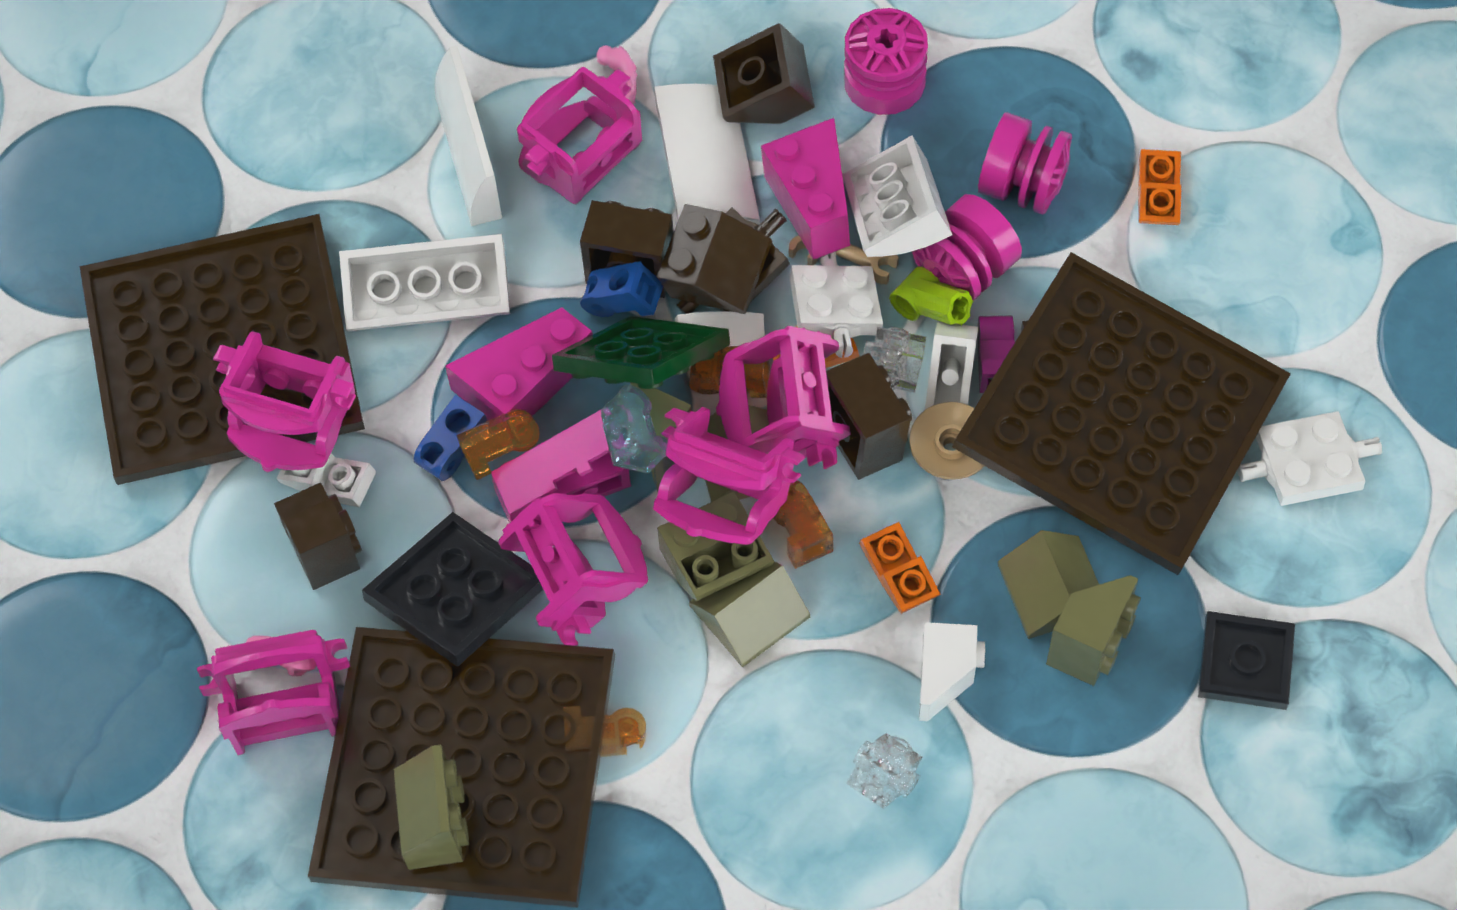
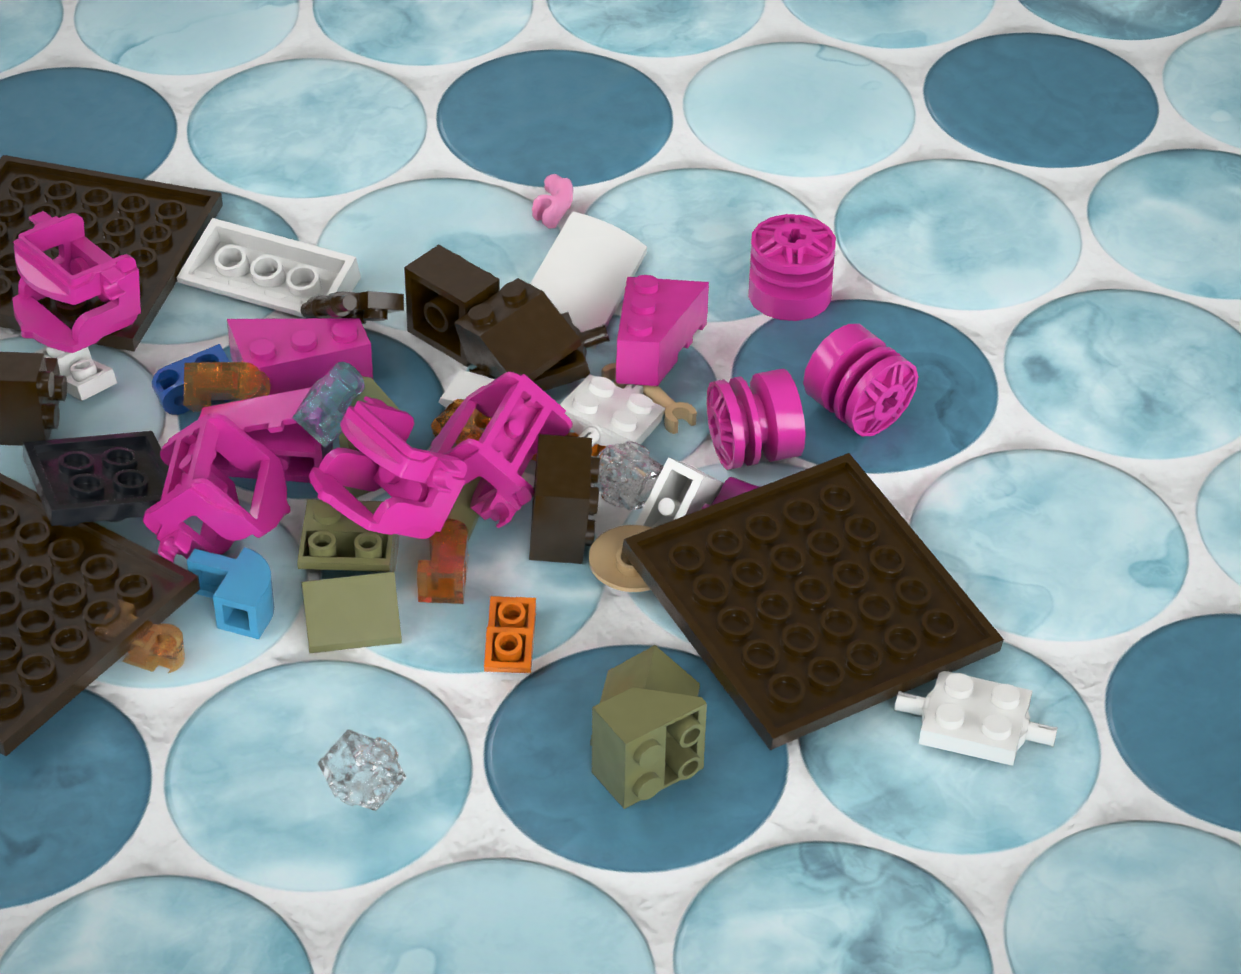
camera: 25 degrees right, 20 degrees down
(466, 140) = (385, 191): white slope -> none
(542, 294) = (363, 305): none -> dark brown plate
(548, 125) = (479, 231): dark pink animal -> none
(622, 290) = (427, 332): blue leg -> none
(641, 351) = (397, 369): dark green plate -> none
(655, 633) = (238, 588): none -> dark azure brick
(764, 78) = (676, 241): dark brown slope -> none
(896, 201) = (718, 357): white slope -> none
(927, 296) = (697, 445): lime piece -> none
(948, 664) = (488, 723): white slope -> none
(1159, 187) = (986, 458): orange slope -> none
(1246, 660) = (786, 846): black plate -> none

